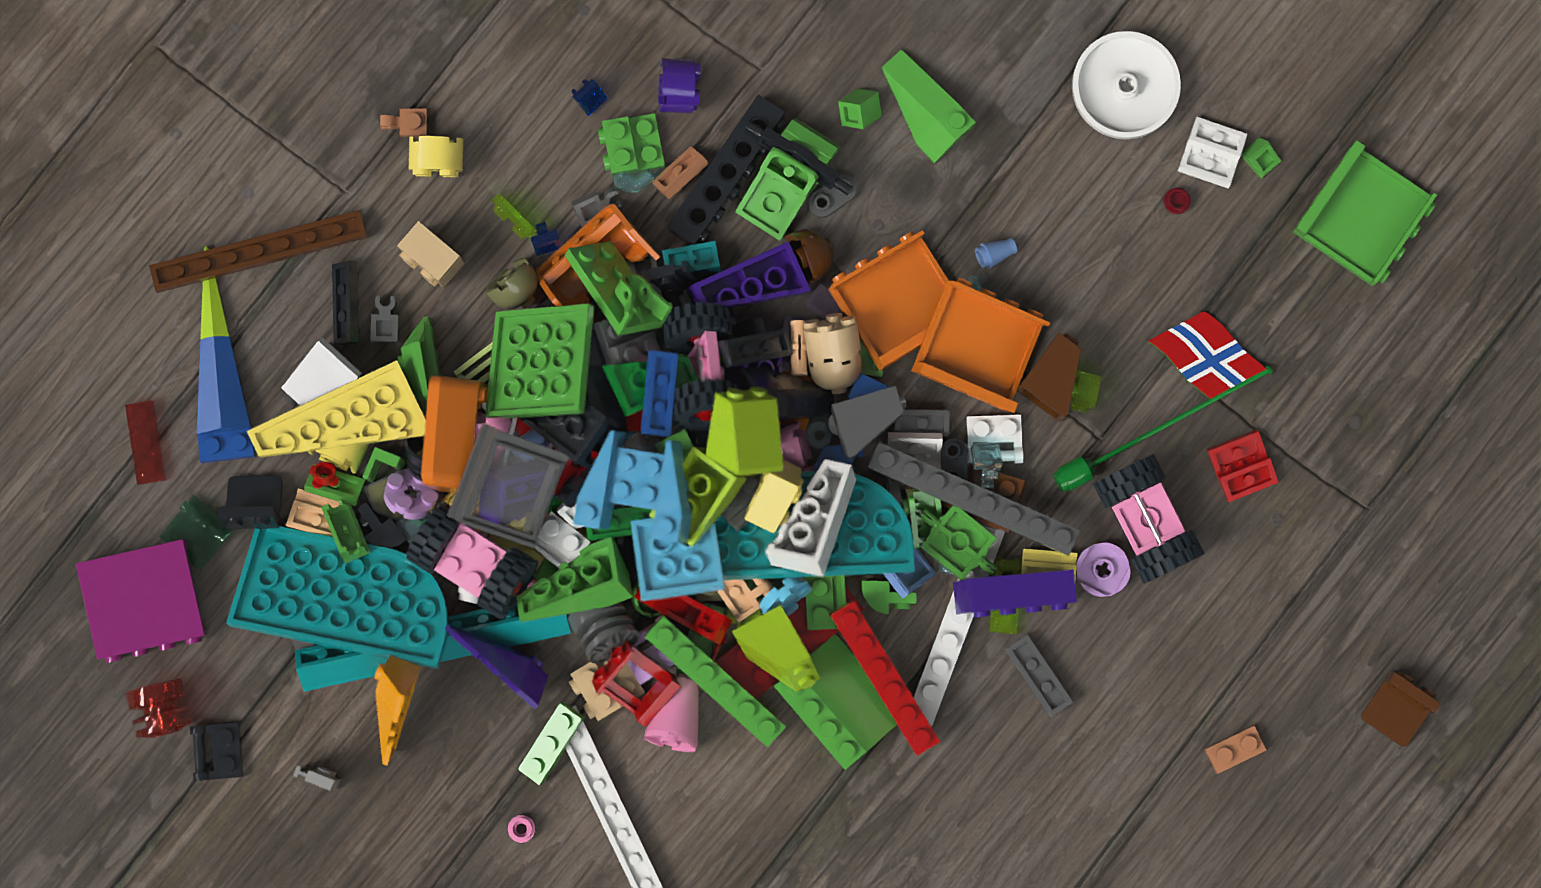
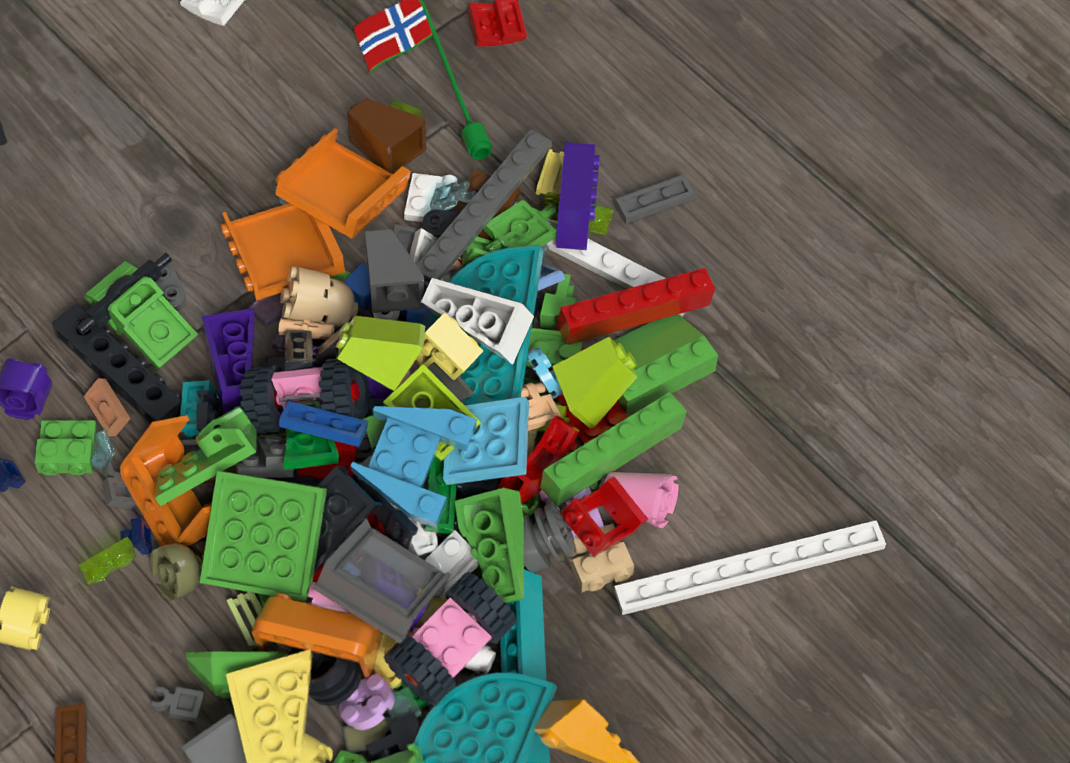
camera: 80 degrees left, 25 degrees down
(345, 303) = (147, 737): black plate -> none
(377, 459) = (325, 721): bright green panel -> none
(430, 254) = (123, 639): tan brick -> none
(512, 828) = (730, 653): bright pink plate -> none
(516, 669) = (568, 632): dark purple wedge -> none
(551, 743) = (649, 613): plate -> none
(812, 253) = (216, 300): reddish brown cylinder -> none
(860, 108) = (92, 249): bright green panel -> none
(927, 108) = (111, 194): bright green wedge -> none
(994, 252) = (258, 168): medium blue cone -> none
(1117, 565) = (567, 124): lavender plate -> none
(1126, 85) = (136, 41): white dish -> none
(1148, 518) = (530, 84): plate -> none
(1177, 201) = (250, 28): dark red plate -> none
(1235, 749) = (746, 69): nougat plate -> none

